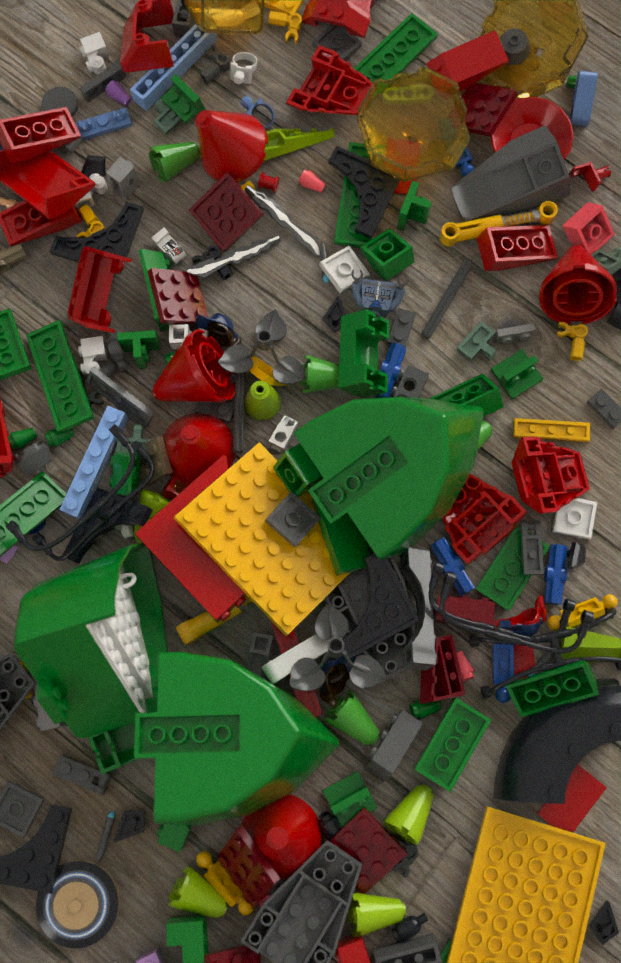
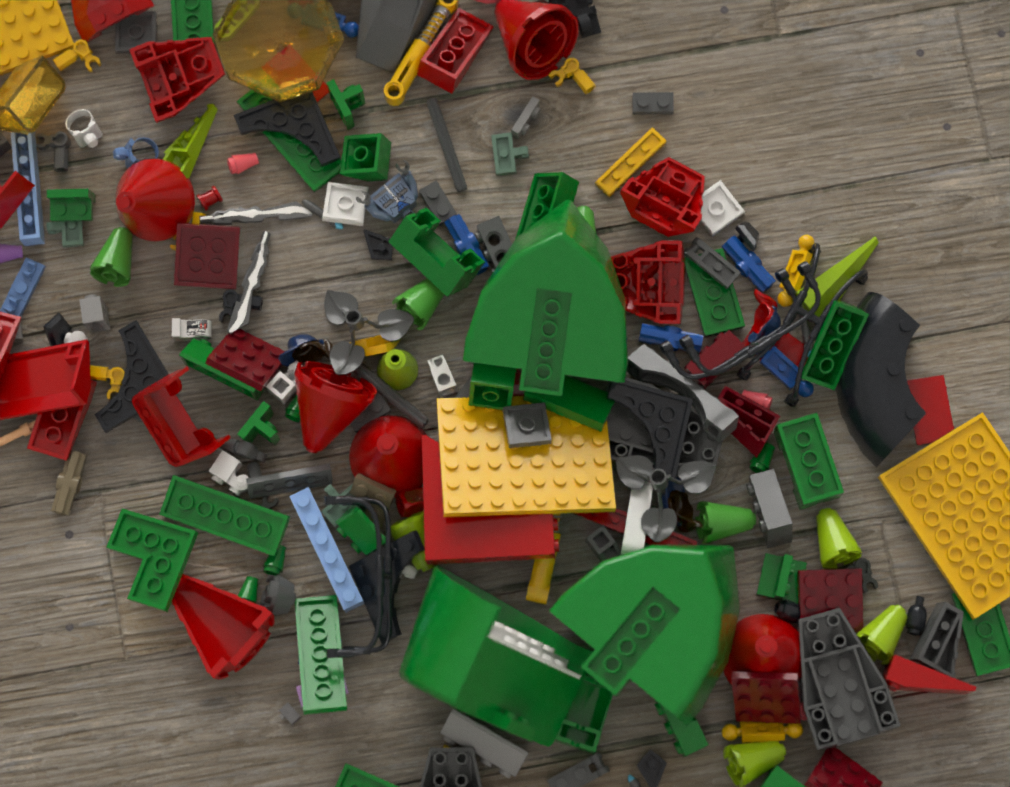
camera: 50 degrees left, 0 degrees up
(517, 373) = (560, 146): green bracket -> none

